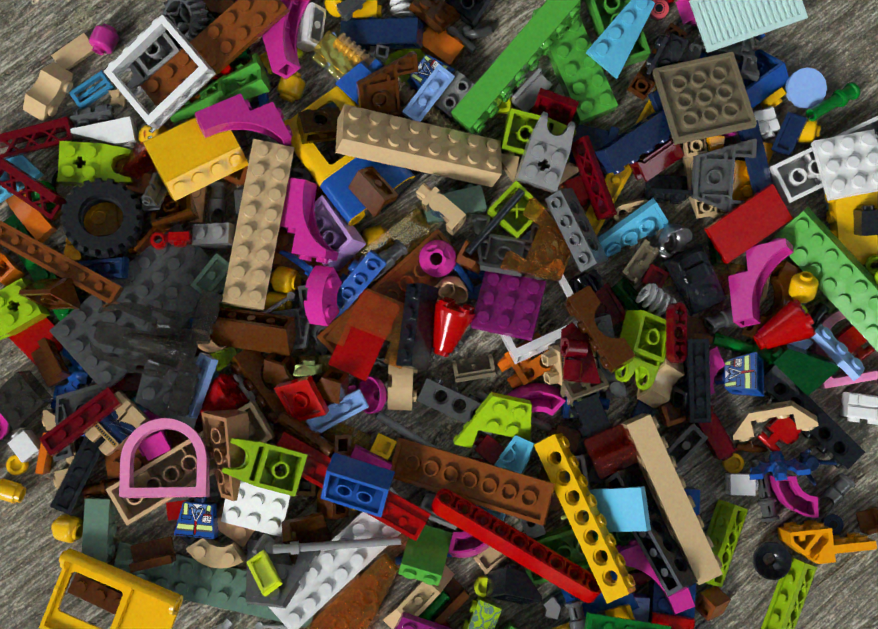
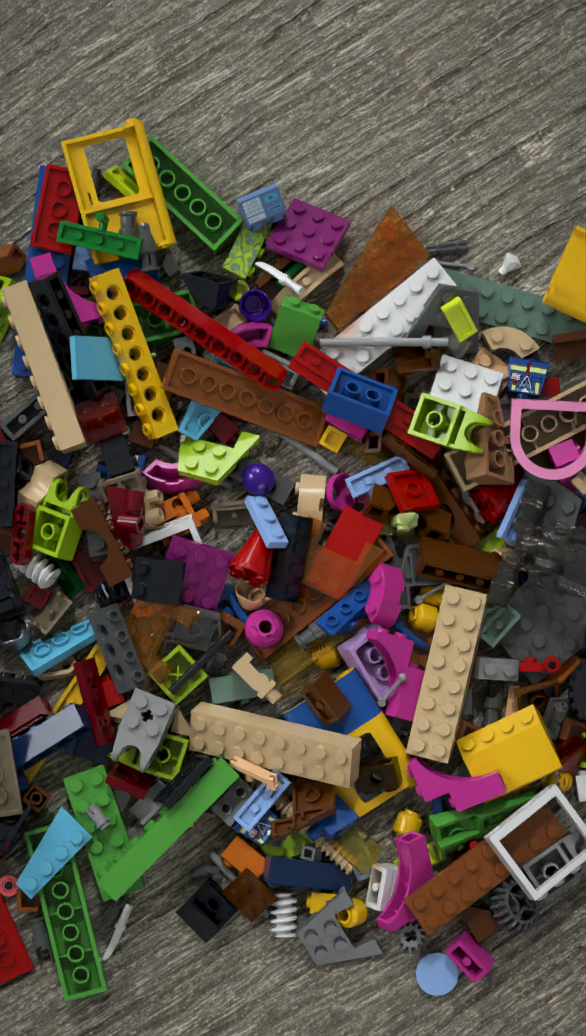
camera: 175 degrees left, 0 degrees up
(319, 195) = (382, 701): none -> light grey hinge
(437, 118) = (253, 771): none -> light nougat piece
(440, 601) = (283, 279): none -> white piece
(441, 359) = (266, 522): none -> light blue plate
(452, 401) = (258, 479): none -> dark purple hair
(467, 573) = (255, 305): none -> dark purple hair
(505, 104) = (182, 781): none -> black tile
(543, 295) = (158, 579): none -> black slope
(582, 69) = (98, 817): none -> light grey pin

